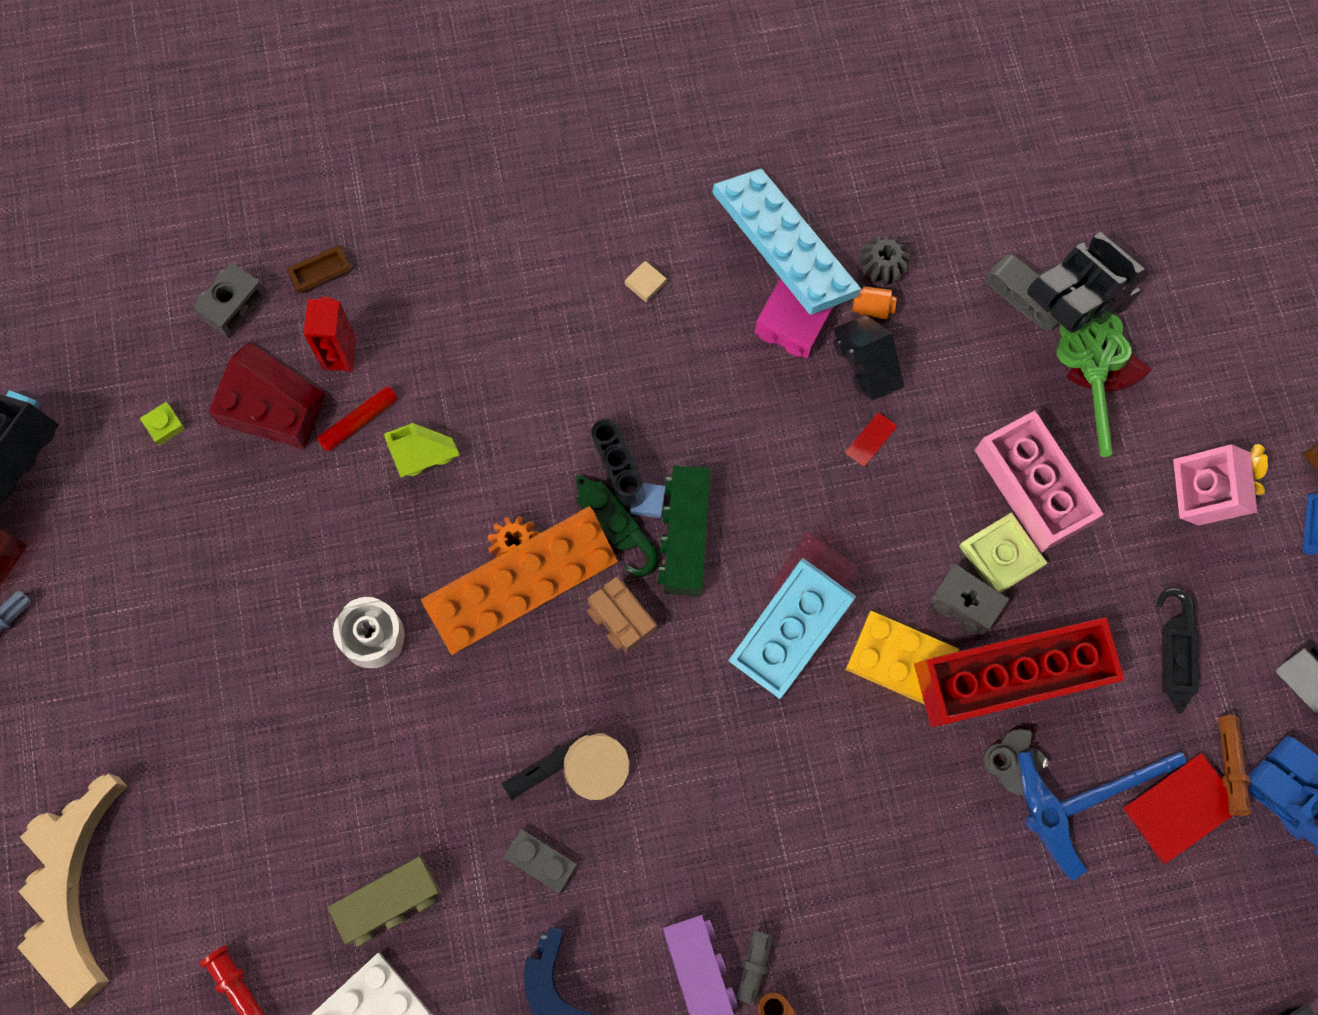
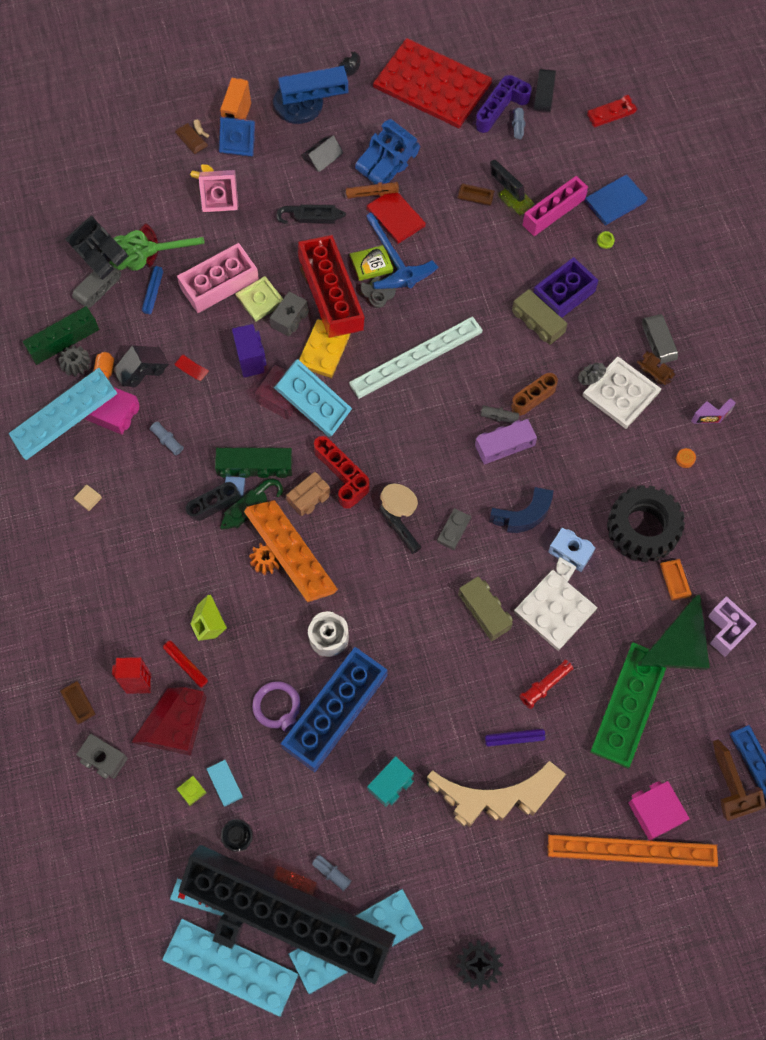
camera: 90 degrees left, 5 degrees down
(78, 483) = (236, 835): none -> black hair
(117, 717) = (391, 782): none -> teal brick
(159, 931) = (515, 737): none -> dark purple axle
(165, 470) = (224, 783): none -> medium azure tile
(242, 565) = (287, 721): none -> medium lavender piece
(243, 636) = (334, 709): none -> blue brick
(664, 669) = (338, 468): none -> red beam
(739, 396) = (166, 438): none -> sand blue pin
(882, 825) = (415, 357): none -> light aqua tile
(890, 526) = (249, 350): none -> dark purple brick
(930, 238) = (61, 335): none -> dark green brick
(1019, 379) = (152, 290): none -> blue axle
(1077, 753) = (371, 263): none -> lime slope
(1236, 970) = (476, 194): none -> reddish brown tile

